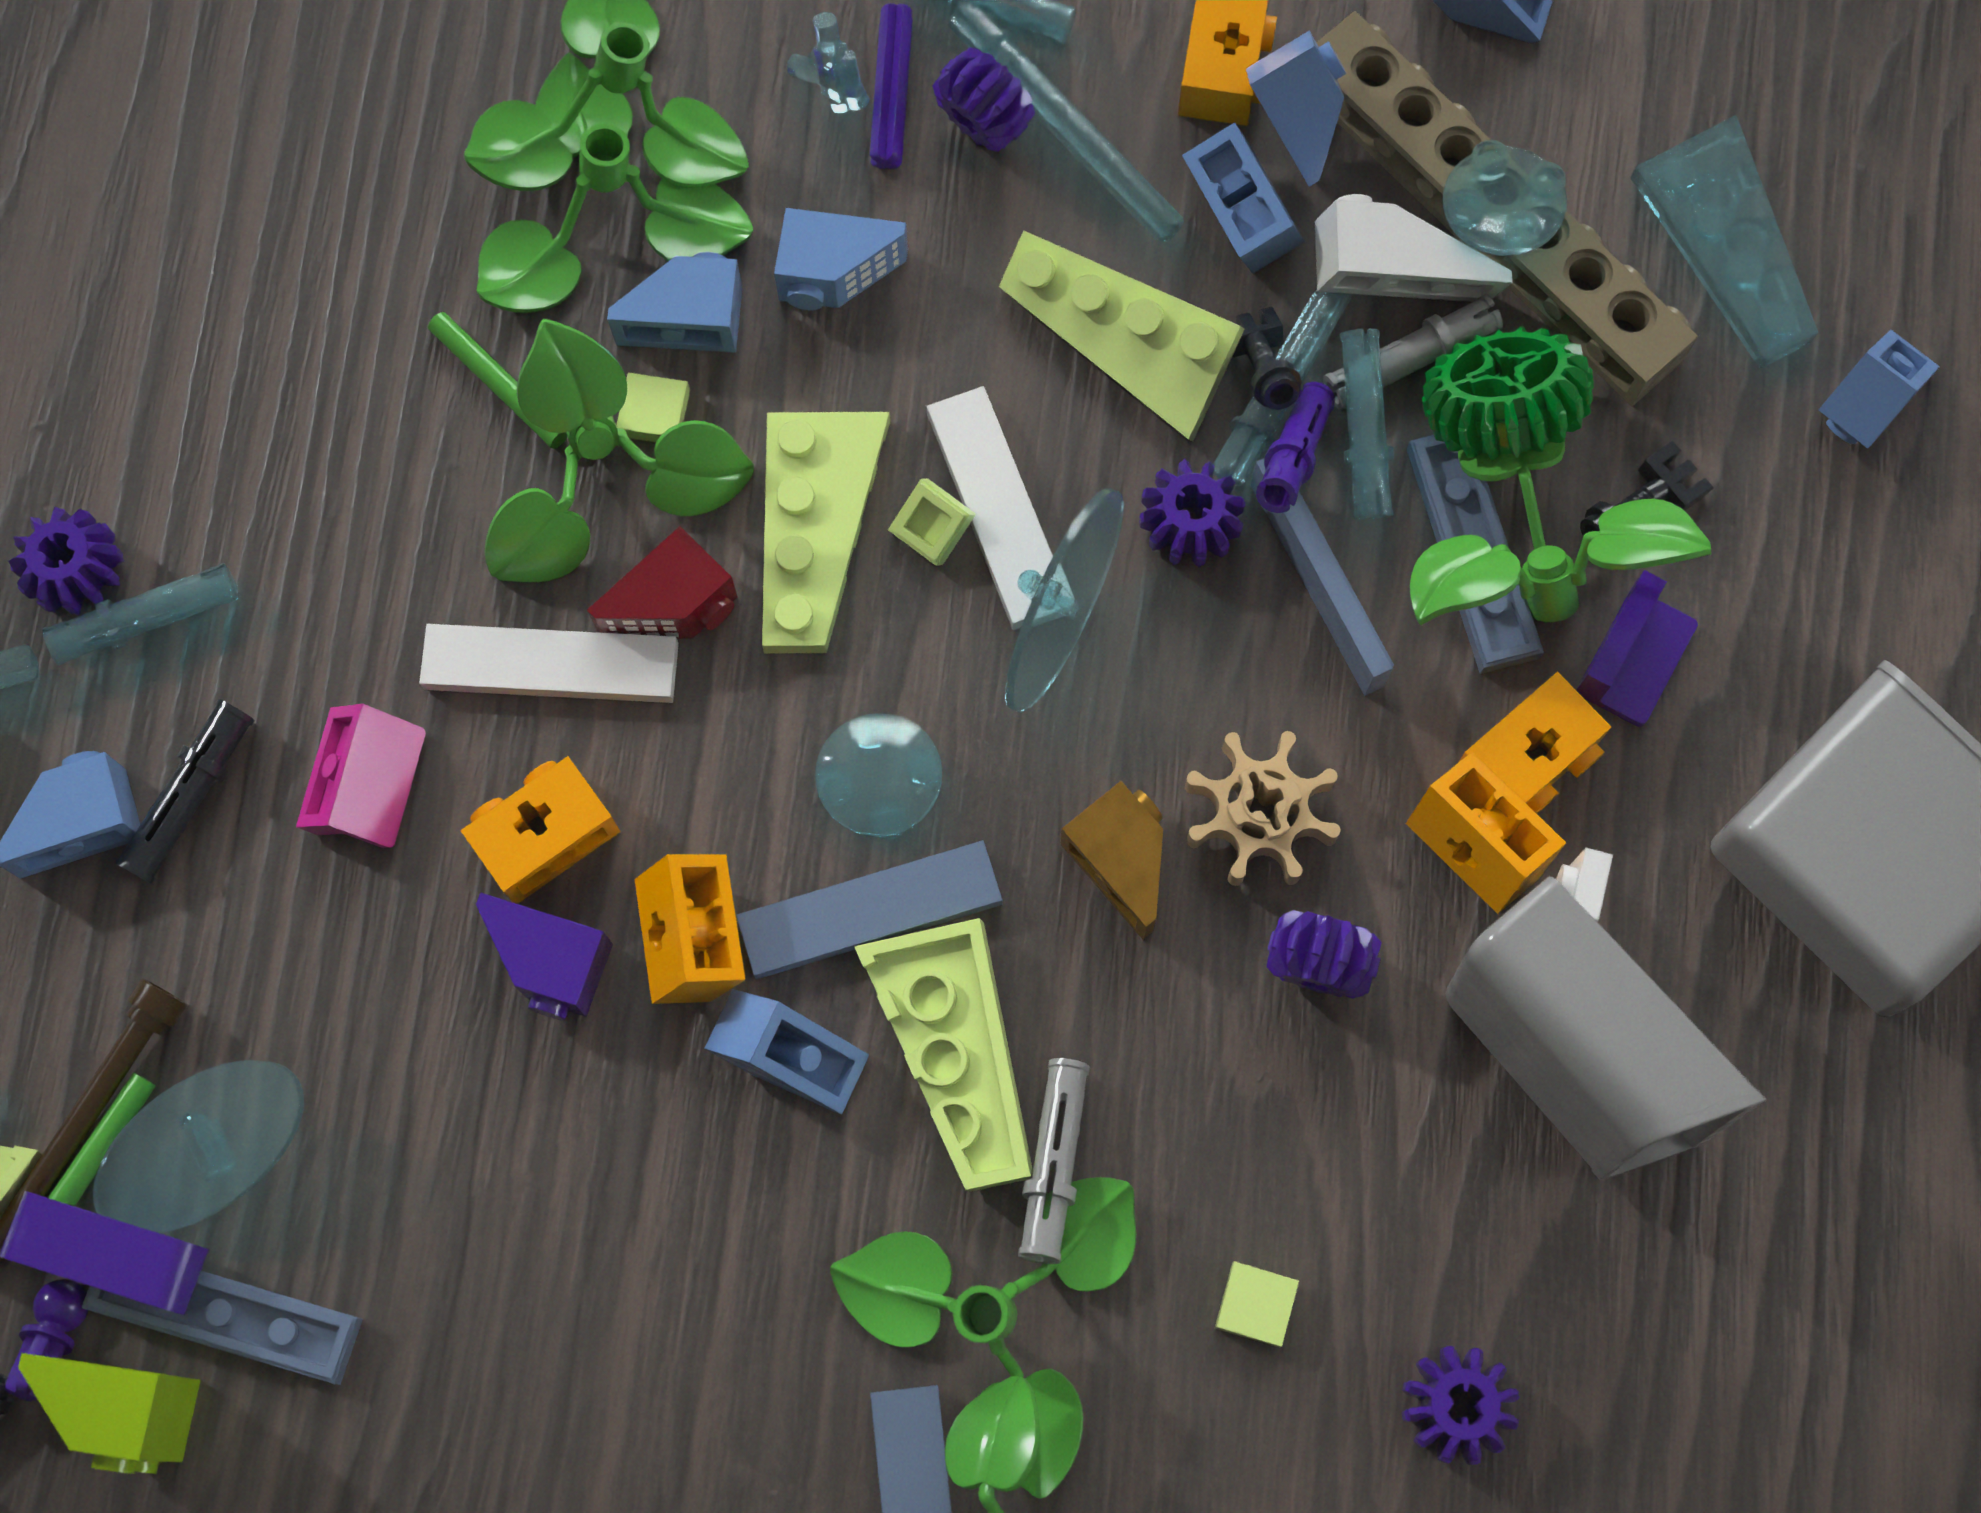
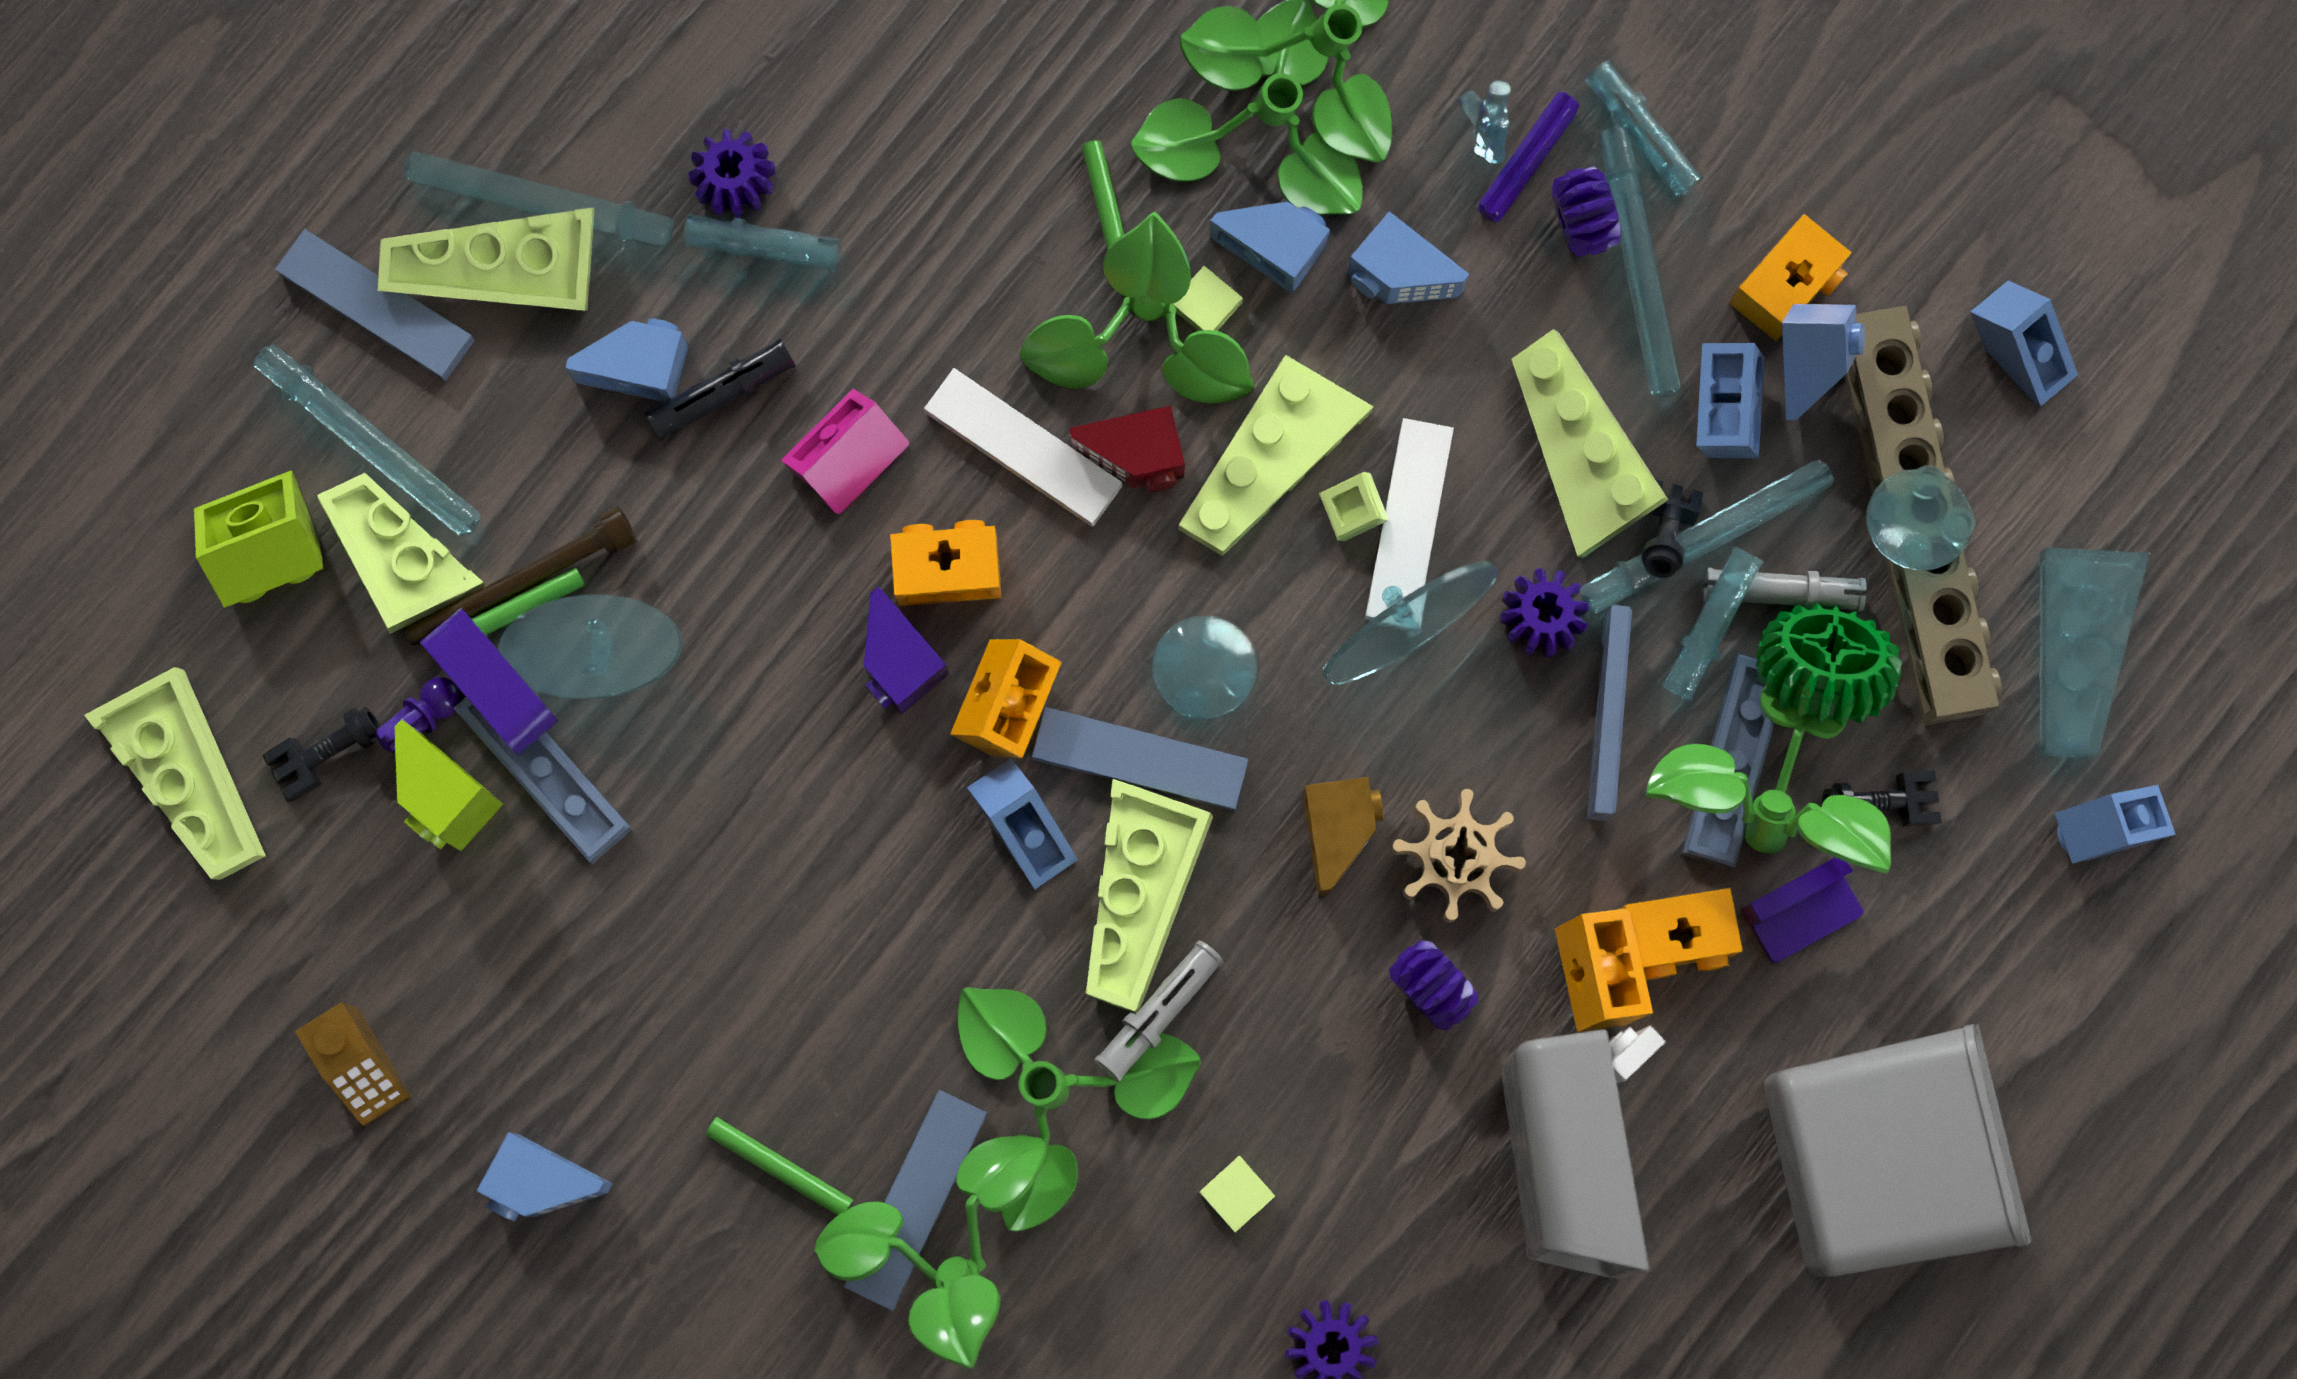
camera: 30 degrees right, 5 degrees up
(1292, 457) = (1635, 618): dark purple pin -> none
(1394, 253) = (1814, 509): white slope -> none

